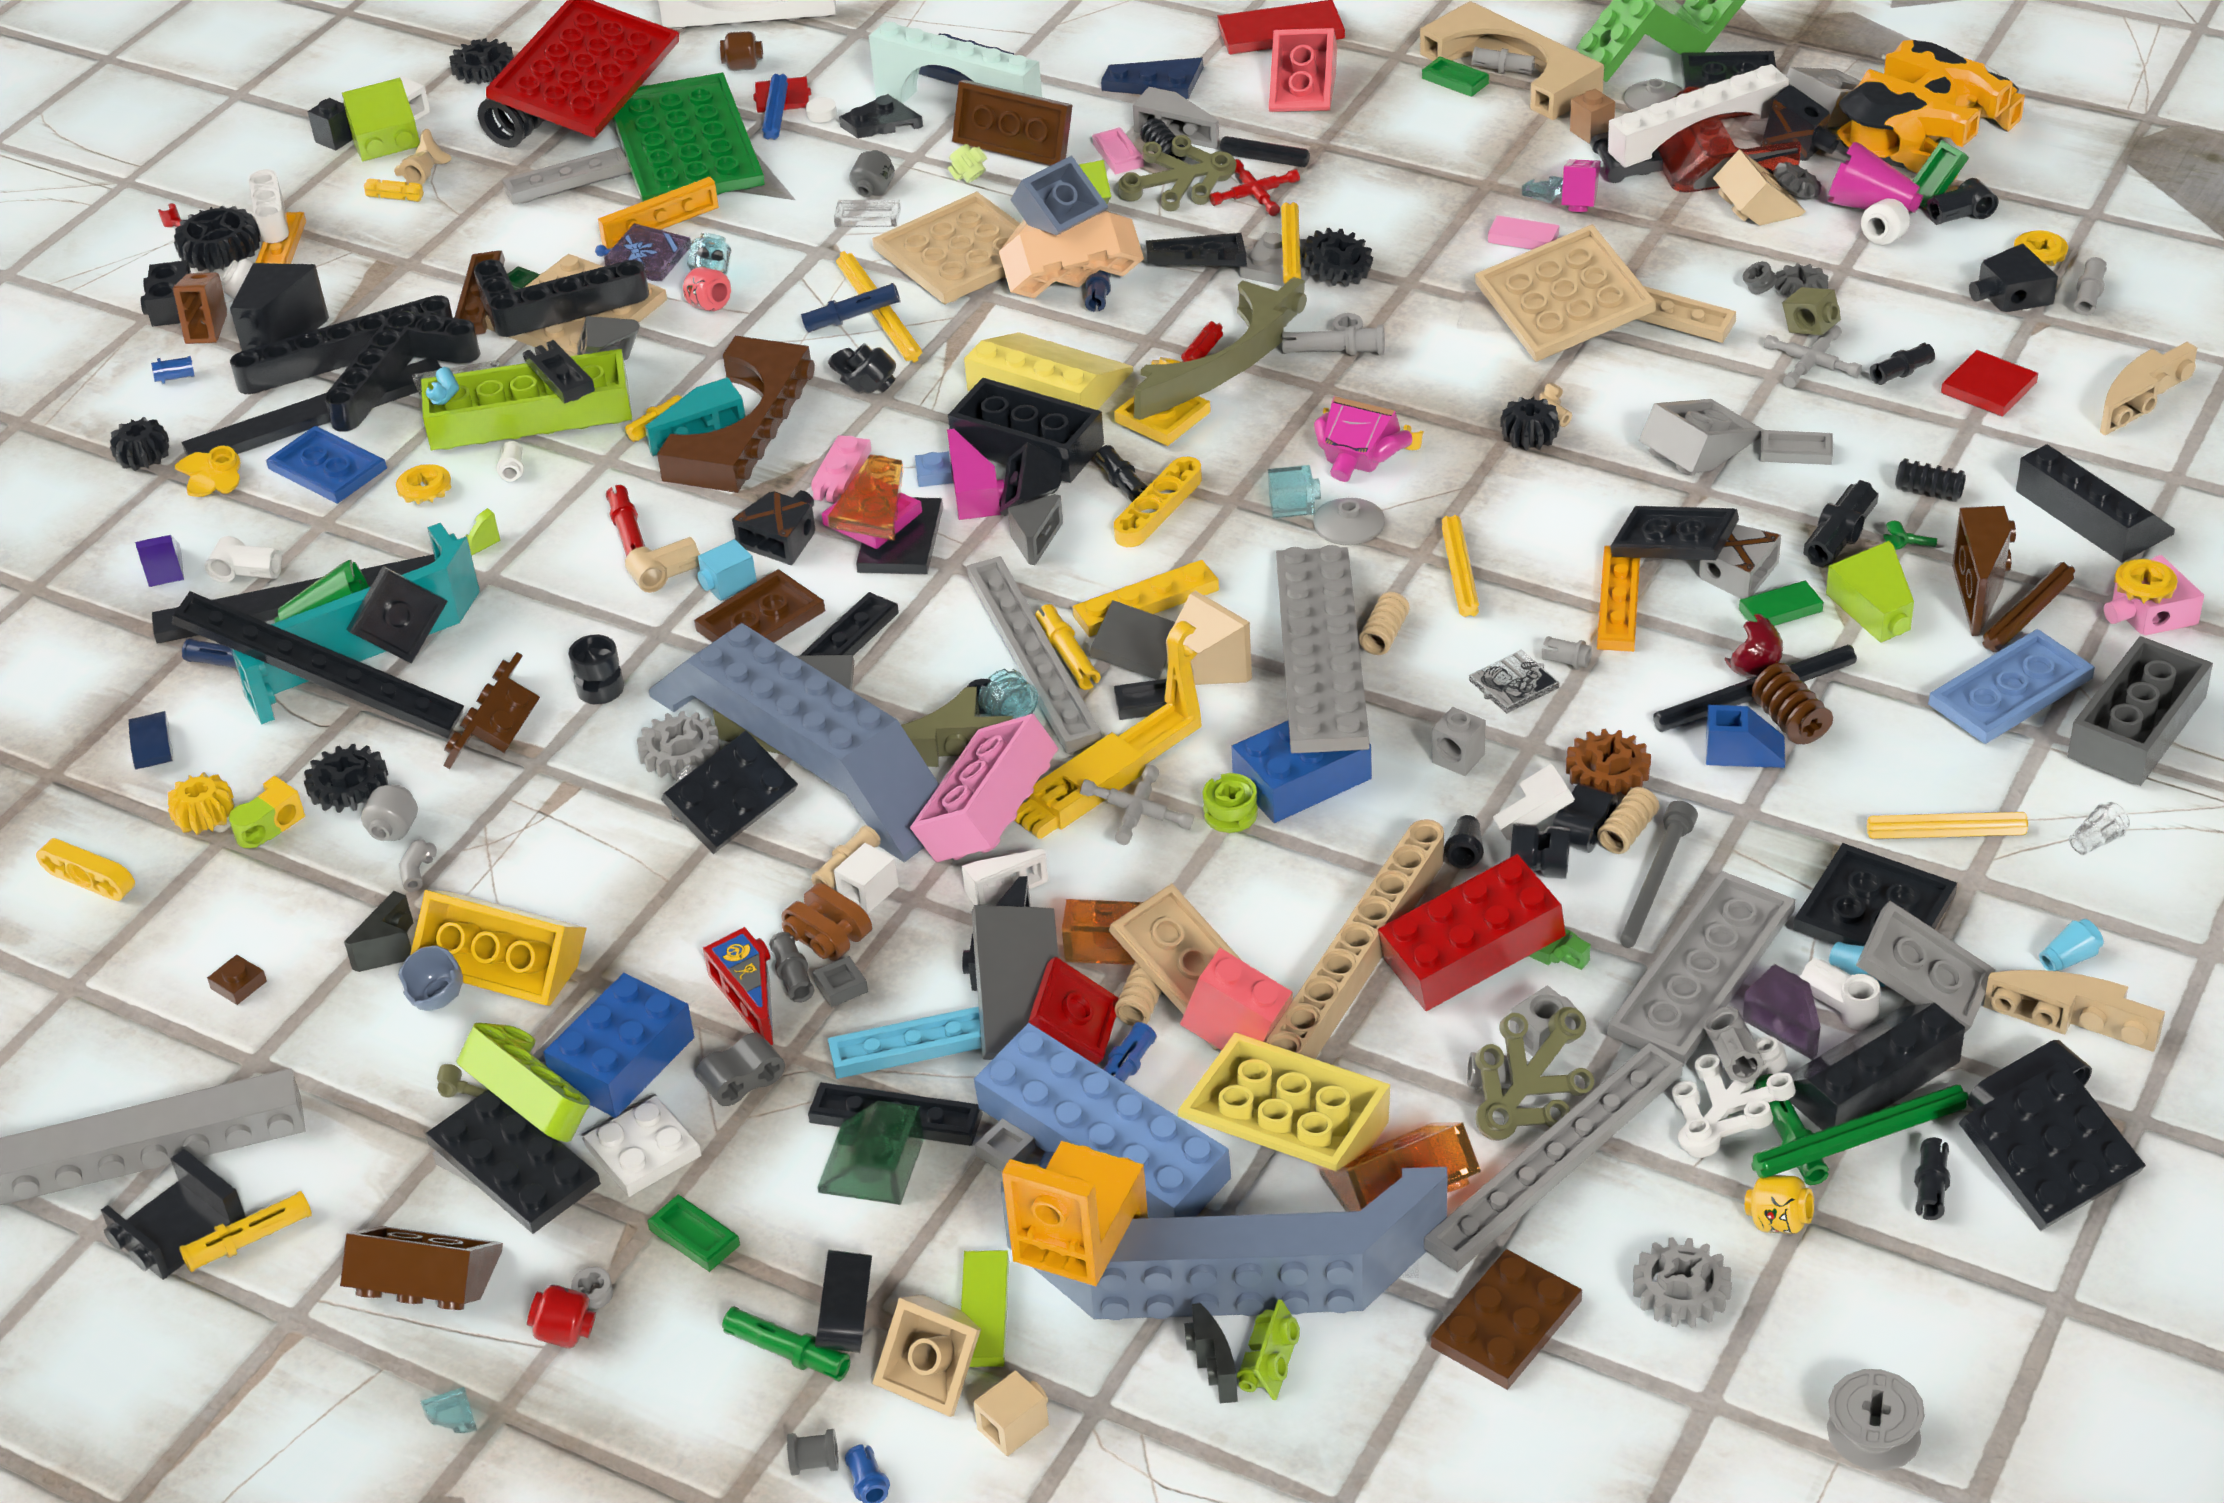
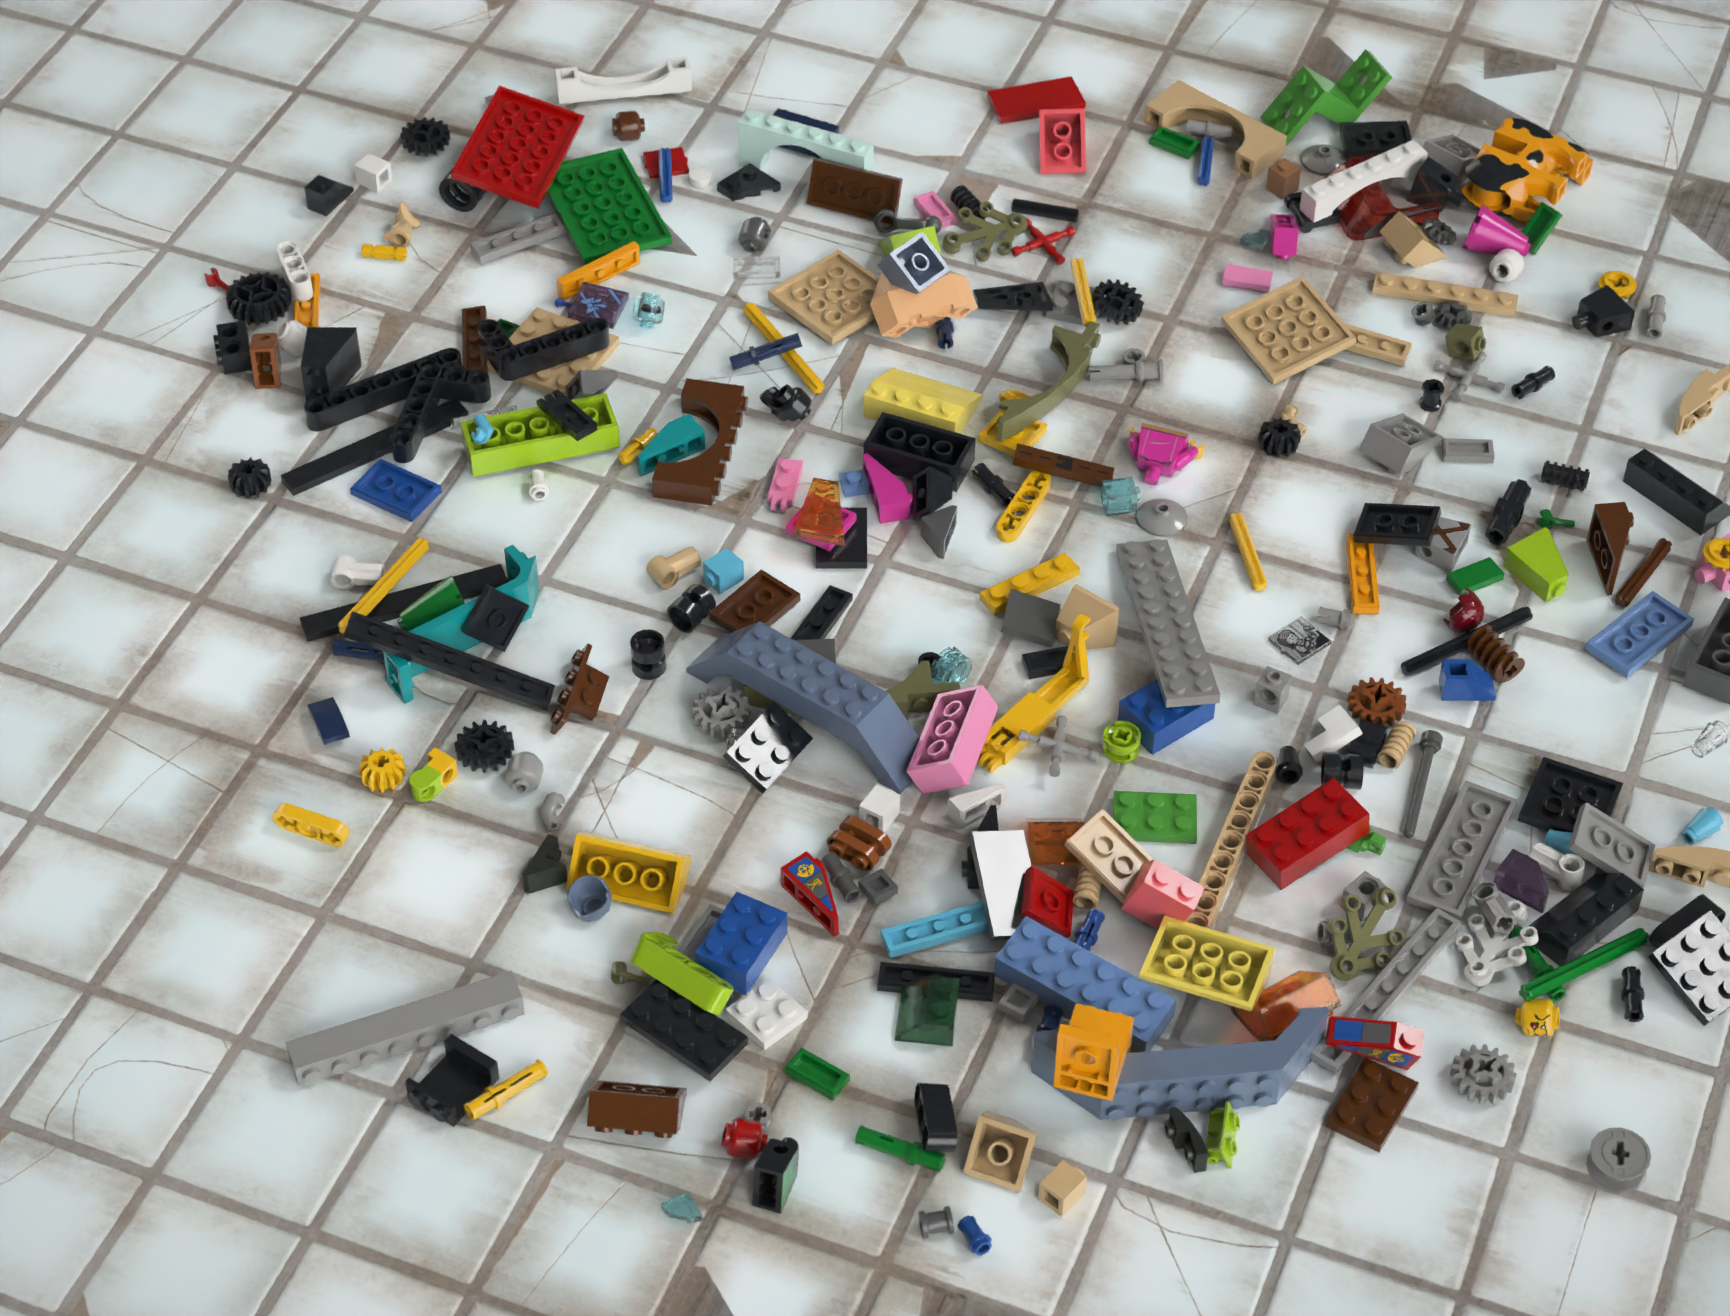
camera: 10 degrees left, 5 degrees up
(161, 560) = (295, 576): dark purple slope -> none
(172, 369) = (255, 412): blue pin -> none
(211, 471) = (308, 501): yellow plate -> none
(236, 979) = (444, 903): reddish brown plate -> none
(284, 566) = (387, 581): none -> yellow axle
(380, 119) = (363, 193): lime slope -> none
(434, 476) = (478, 497): yellow gear -> none
(483, 532) = (534, 544): lime tile -> none
(590, 1367) = (779, 1160): none -> black torso
(625, 518) = (635, 529): red pin -> none
(670, 614) = (691, 608): none -> black wheel
(707, 289) = (652, 336): coral head -> none
(740, 1069) = (823, 955): dark grey axle -> none
(776, 526) = (751, 534): black torso -> none
(842, 852) = (859, 793): tan pin -> none
(967, 163) = (825, 225): yellowish green gear -> none
(985, 1303) = (1026, 1109): lime tile -> none
(1034, 654) = (959, 630): light grey plate -> none
(1062, 639) = (976, 616): yellow pin -> none
(1112, 162) = (905, 223): none -> dark grey piece
(1168, 75) = (949, 146): dark blue wing -> none
(1178, 115) = (977, 180): light grey slope -> none
(1203, 342) = (1030, 375): red axle -> none
(1216, 451) = (1061, 465): none -> reddish brown tile
(1261, 904) = (1157, 816): none -> bright green plate
(1384, 623) = (1204, 598): tan piece -> none
(1492, 97) = (1205, 161): none -> blue axle
(1523, 1223) = (1377, 1040): none -> slope
(1754, 372) = (1431, 397): none -> black bush
(1778, 252) = (1438, 292): none -> tan plate
(1947, 825) = (1609, 740): yellow axle -> none
(1969, 199) = (1562, 246): black piece -> none
(1989, 383) = (1595, 395): red tile -> none

